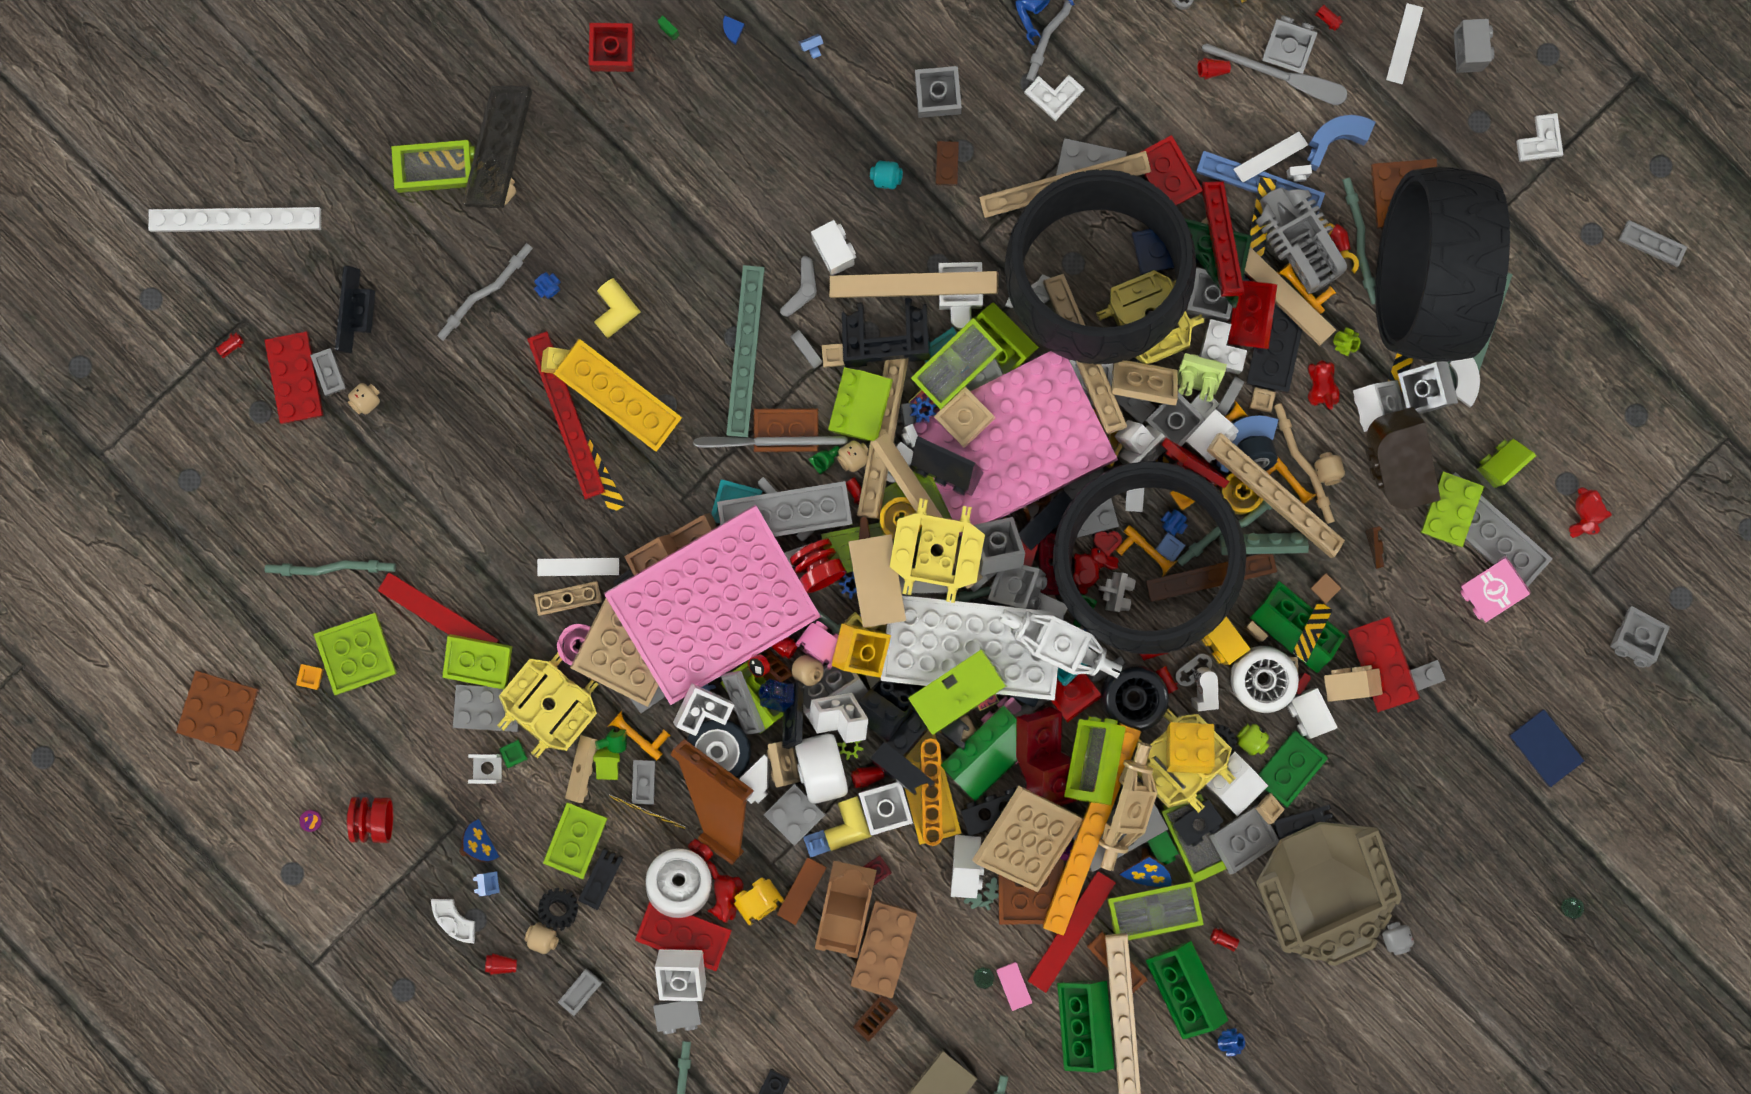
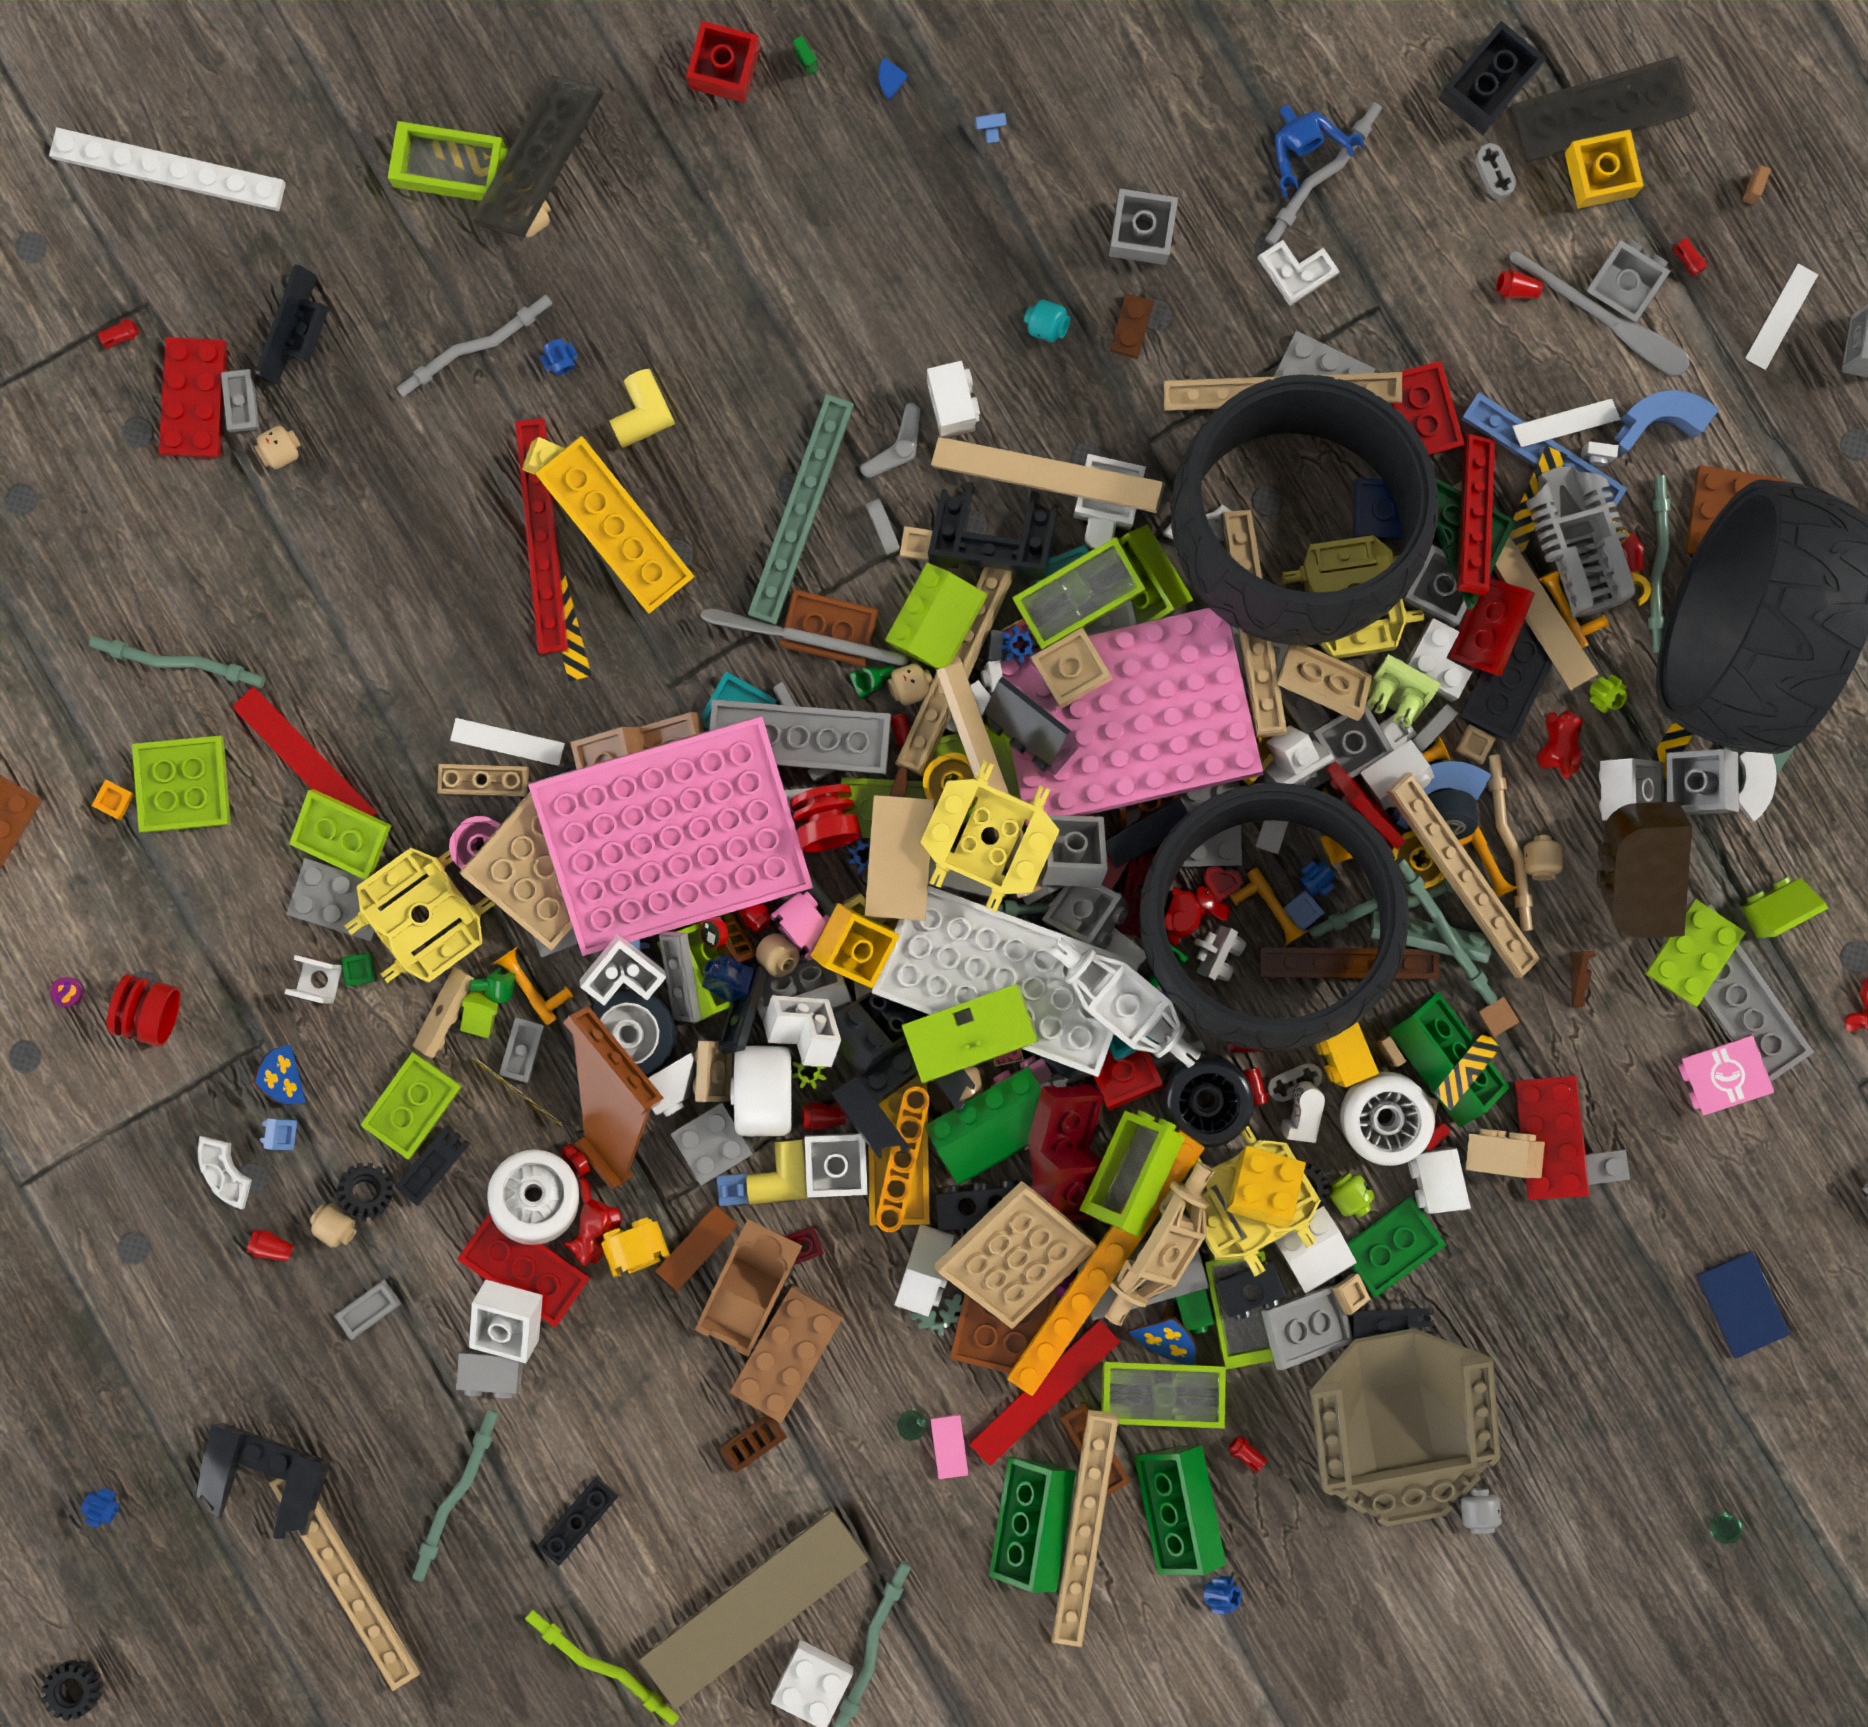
camera: 10 degrees right, 0 degrees up
(1301, 563) = (1475, 976): none -> sand green bar

